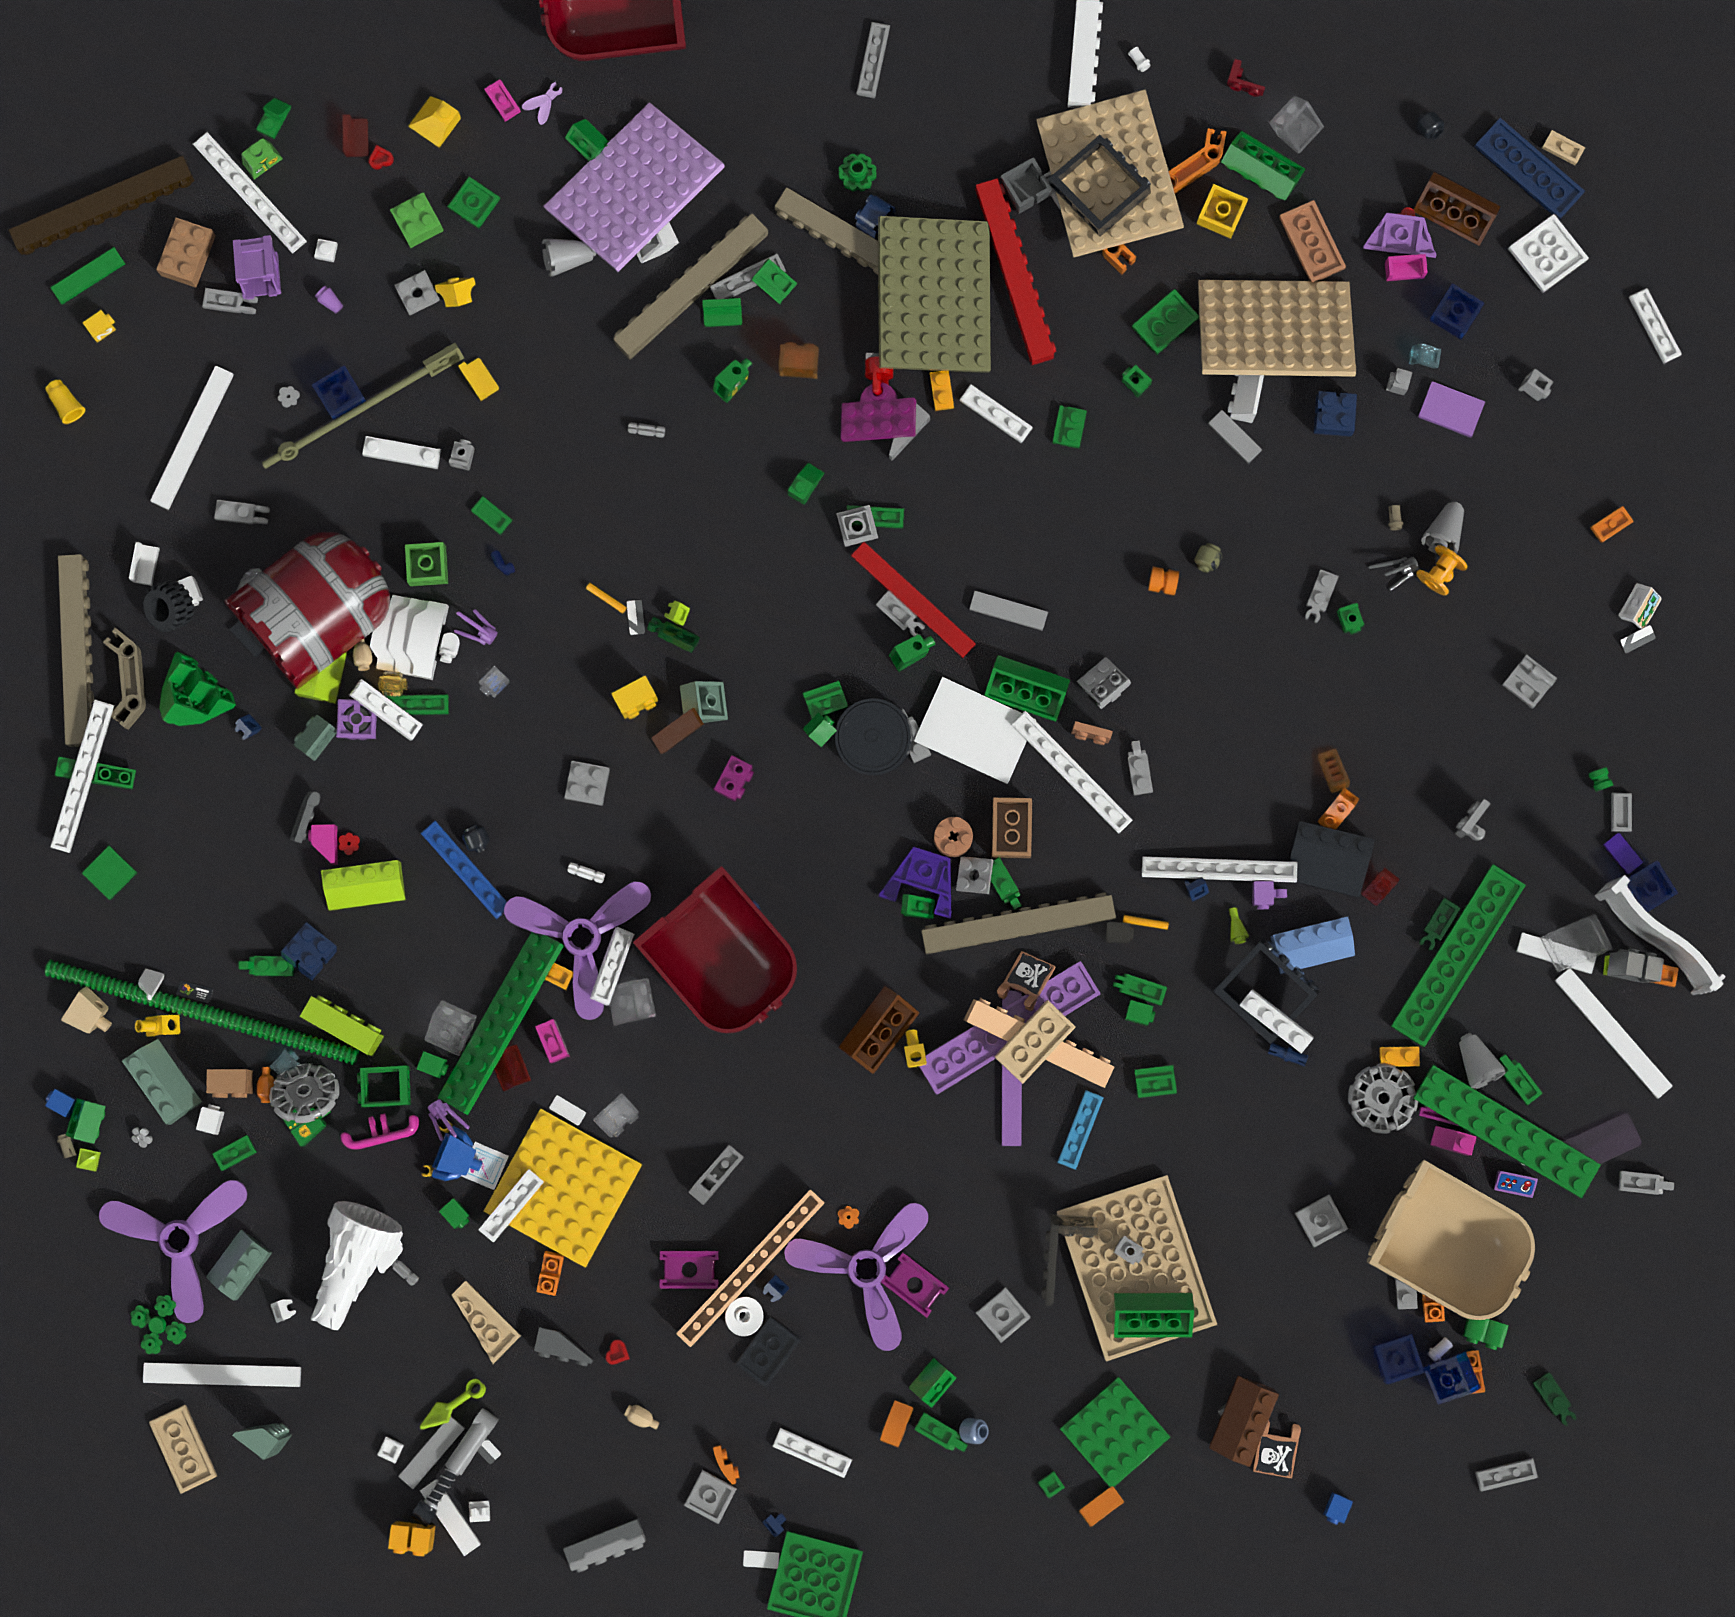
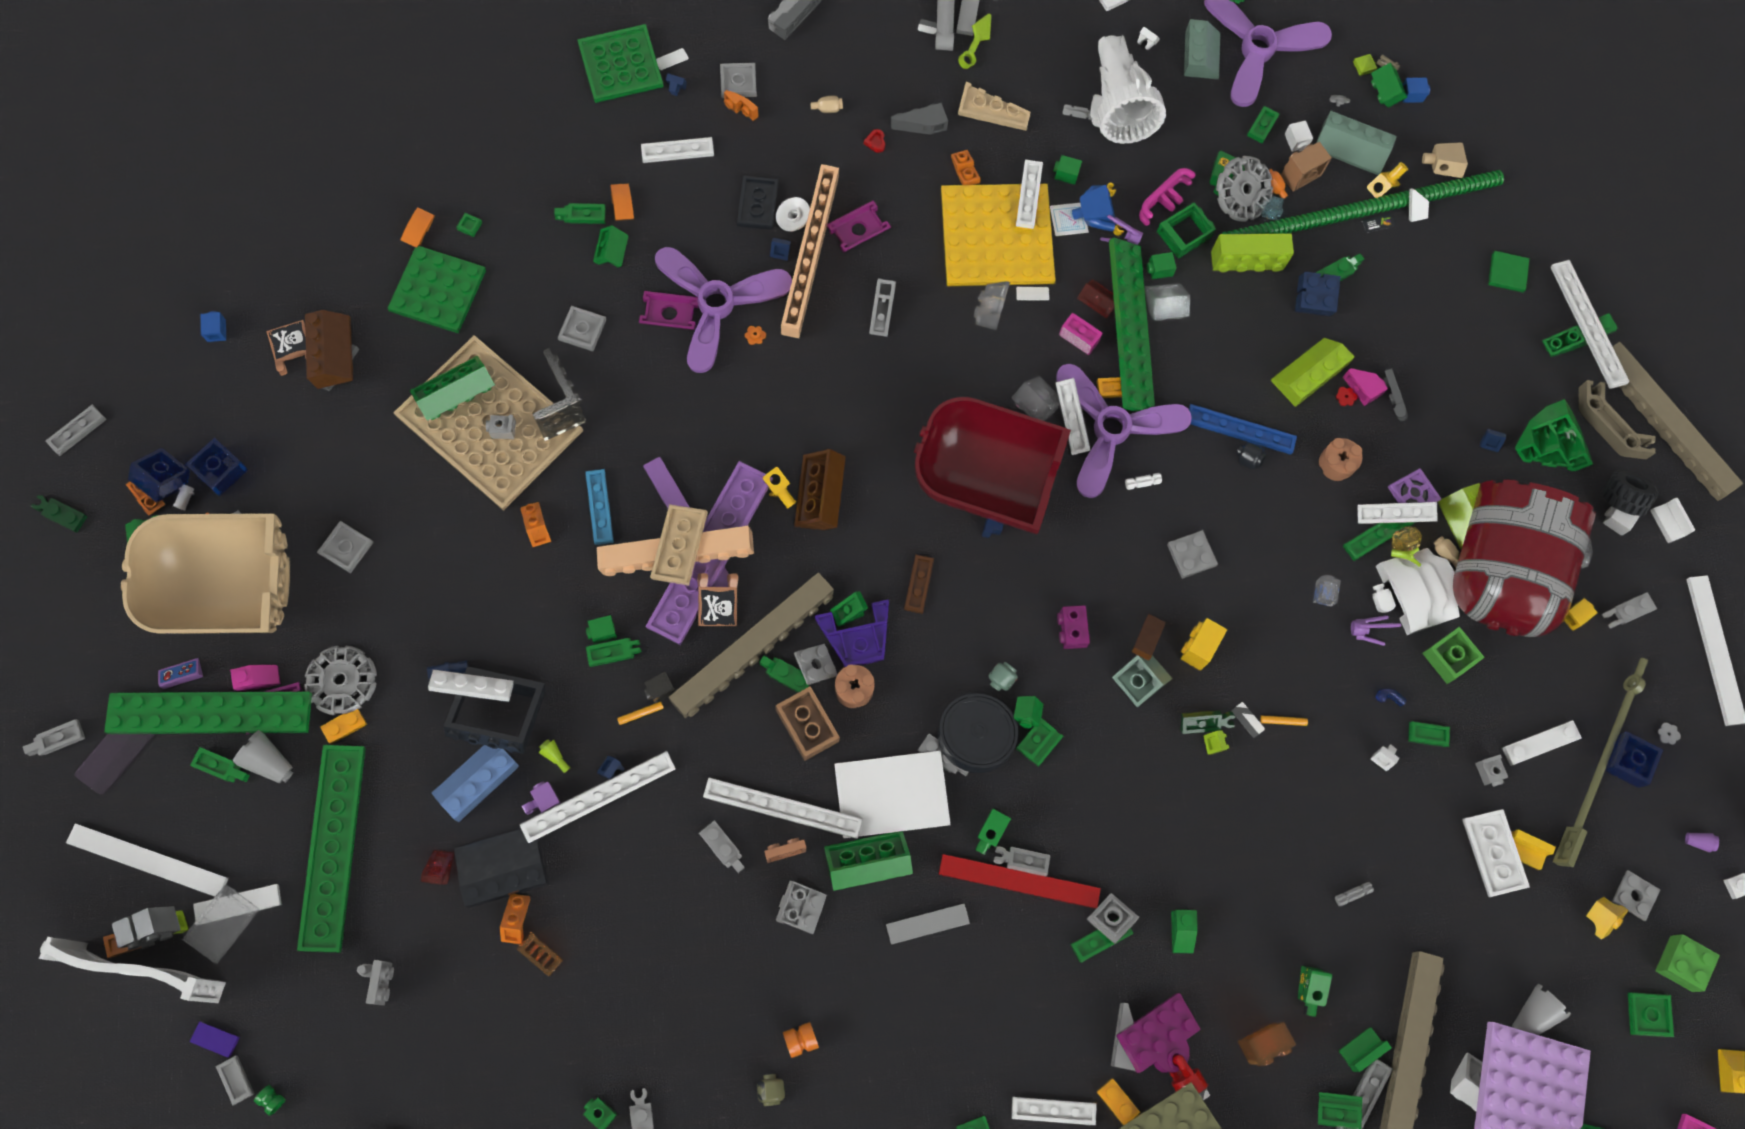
camera: 140 degrees right, 10 degrees down
(288, 534) = (1580, 614): none -> yellow brick
(315, 737) = (1434, 459): sand green slope -> none
(404, 670) = (1408, 555): none -> lime bar
(409, 787) = (1340, 459): none -> nougat brick
(508, 391) = (1496, 853): none -> white plate
(543, 517) = (1385, 757): none -> white tile
(821, 772) = (1003, 676): none -> sand green head
(842, 896) = (919, 584): none -> reddish brown tile
(973, 1431) = (555, 226): sand blue head -> none
(1145, 1145) = (535, 524): none -> orange bracket
(1155, 1081) = (555, 580): green plate -> none
(1440, 922) = (364, 867): dark green plate -> none
(1651, 886) = (170, 1018): clear blue brick -> none

